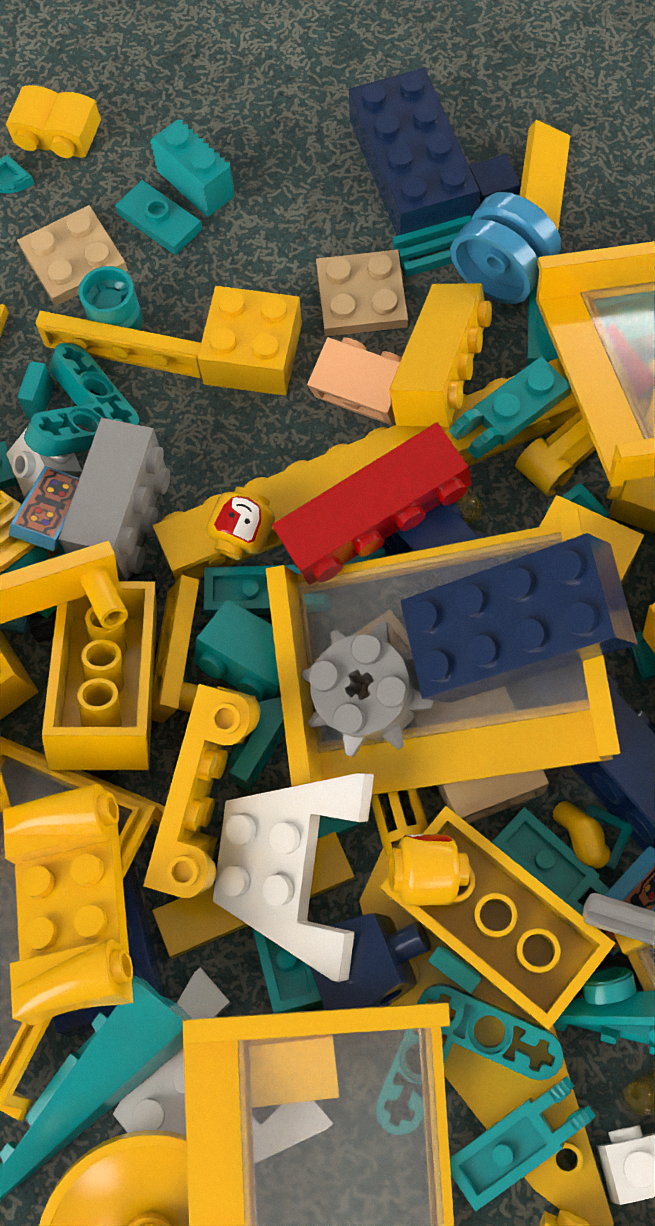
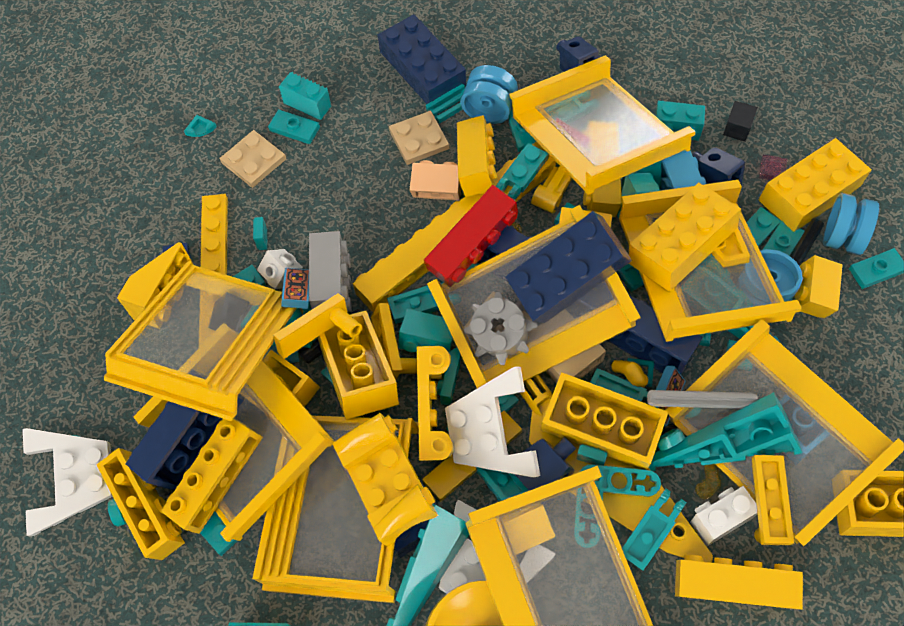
camera: 20 degrees left, 5 degrees down
(53, 121) = (217, 91): yellow brick -> none
(55, 431) = (296, 231): teal beam -> none
(110, 298) = (286, 177): teal wheel -> none
(121, 343) = (299, 197): yellow tile -> none
(240, 523) = (402, 267): head -> none
(250, 340) = (369, 176): yellow brick -> none
(427, 869) = (564, 403): yellow head -> none
(495, 176) = (469, 60): dark blue tile -> none
(545, 168) = (492, 48): yellow tile -> none

